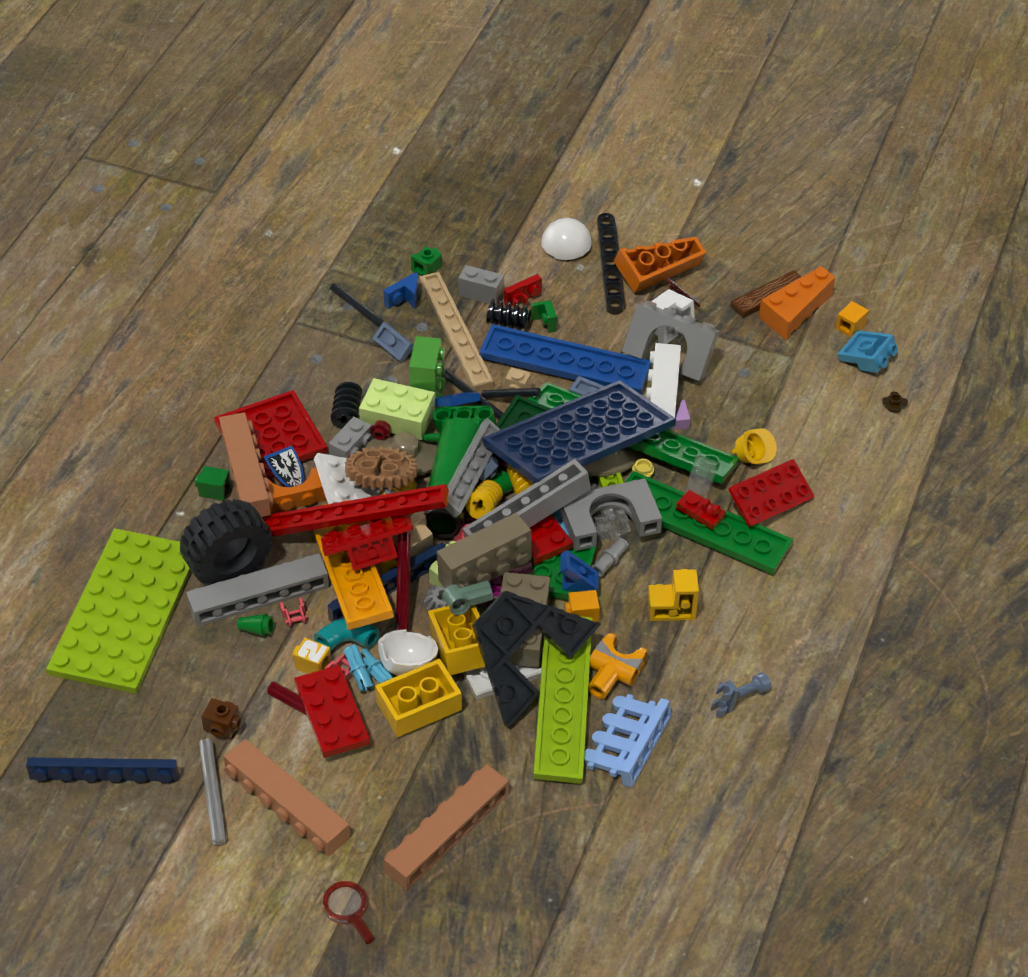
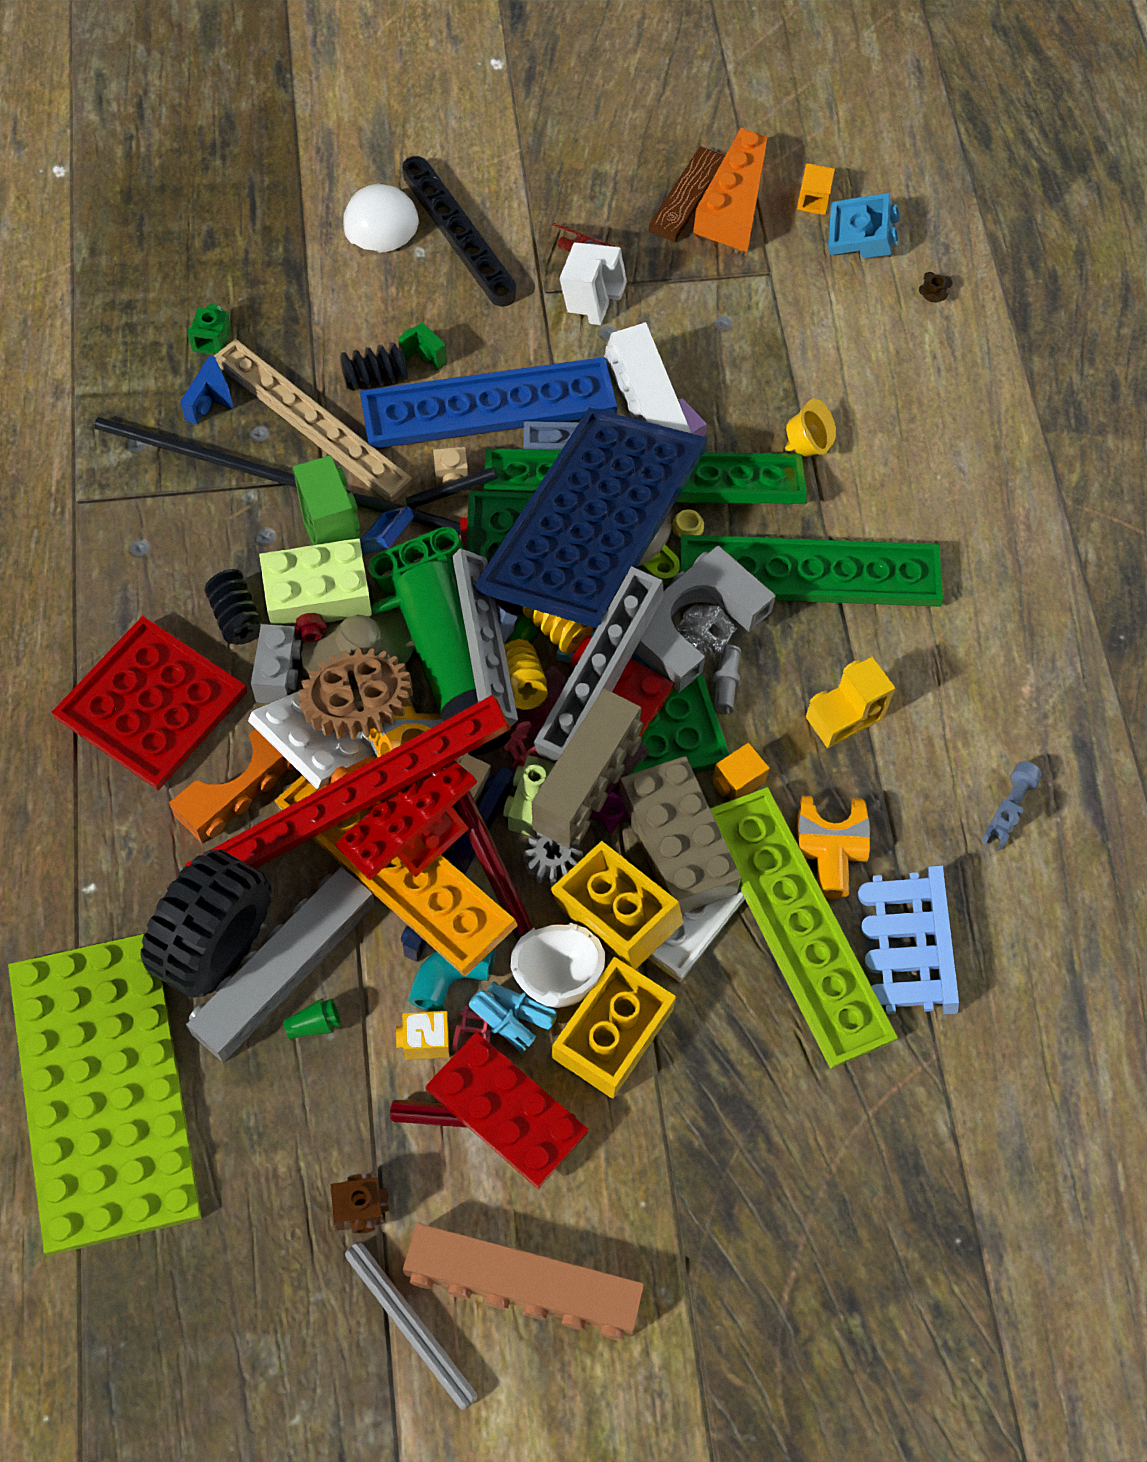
camera: 30 degrees left, 15 degrees up
(102, 769) = (217, 1389): dark blue plate -> none
(213, 483) = (113, 820): green brick -> none
(245, 463) = (153, 776): nougat brick -> none
(285, 467) = (210, 750): shield -> none
(301, 610) = (344, 979): coral piece -> none
(346, 904) = (703, 1402): piece -> none
(393, 341) = (239, 476): sand blue plate -> none
(445, 827) = (767, 1209): nougat brick -> none
(461, 599) = (593, 850): sand green piece -> none
(480, 284) = (308, 336): light grey brick -> none
(505, 628) = (690, 877): black wing -> none
(523, 290) = (370, 323): red plate -> none
(577, 574) = (712, 731): blue slope -> none
(654, 263) = (523, 209): orange wedge -> none
(699, 337) = (585, 297): light grey arch -> none
(701, 509) = (804, 555): red plate -> none
(702, 476) = (778, 508): clear plate -> none
(771, 492) = (872, 489): red bracket -> none

